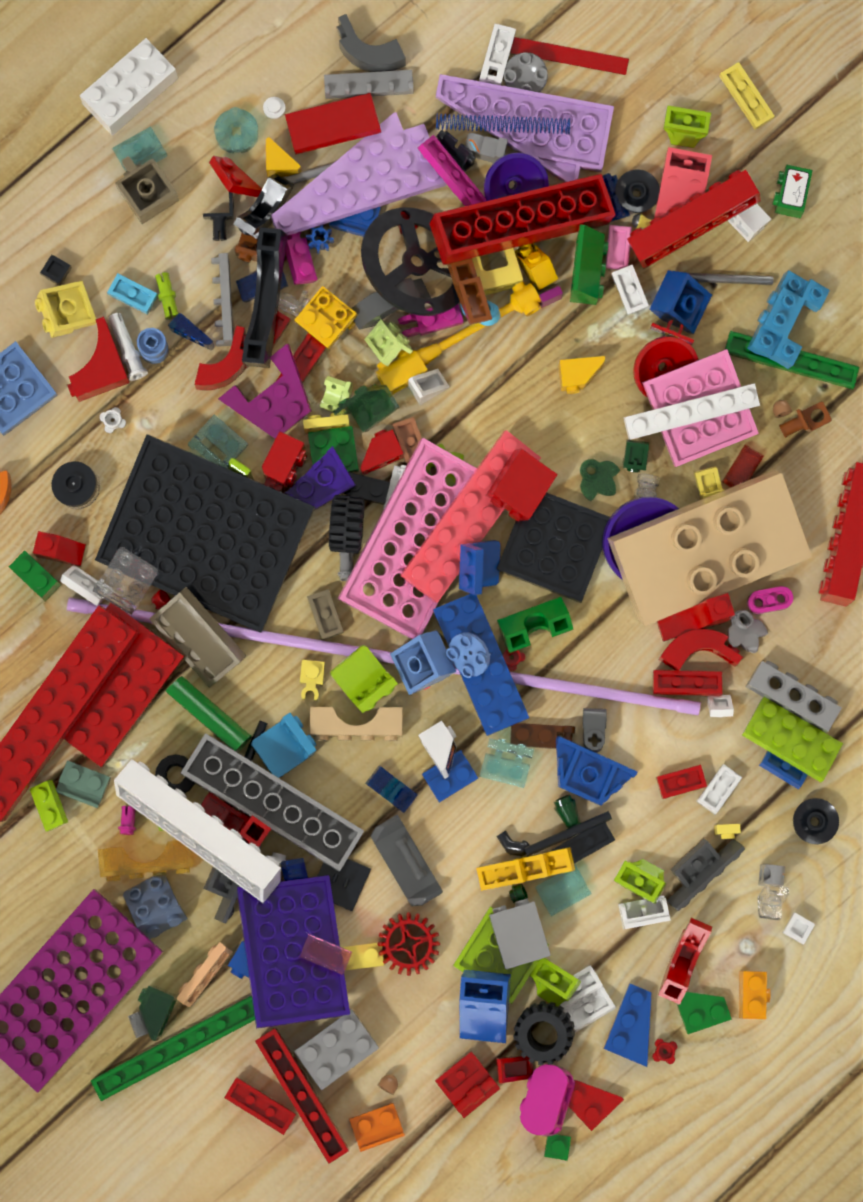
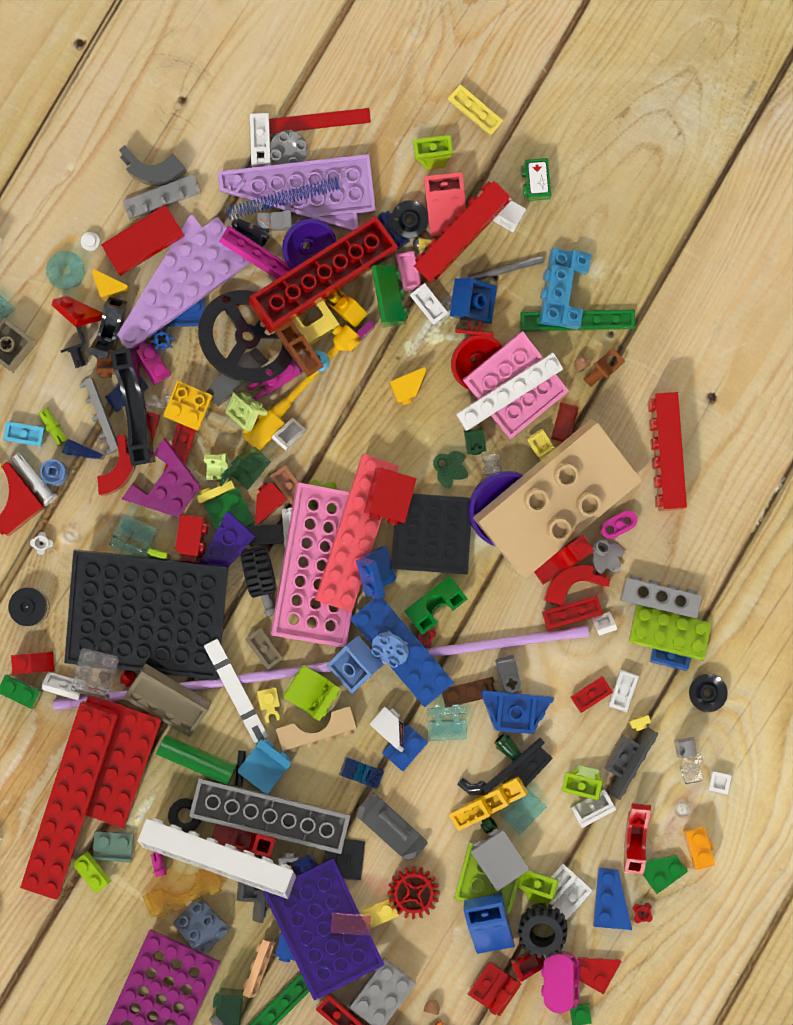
camera: 15 degrees left, 5 degrees up
(278, 651) = (235, 691): none -> white sticker
(306, 175) = (136, 288): light grey piece -> none

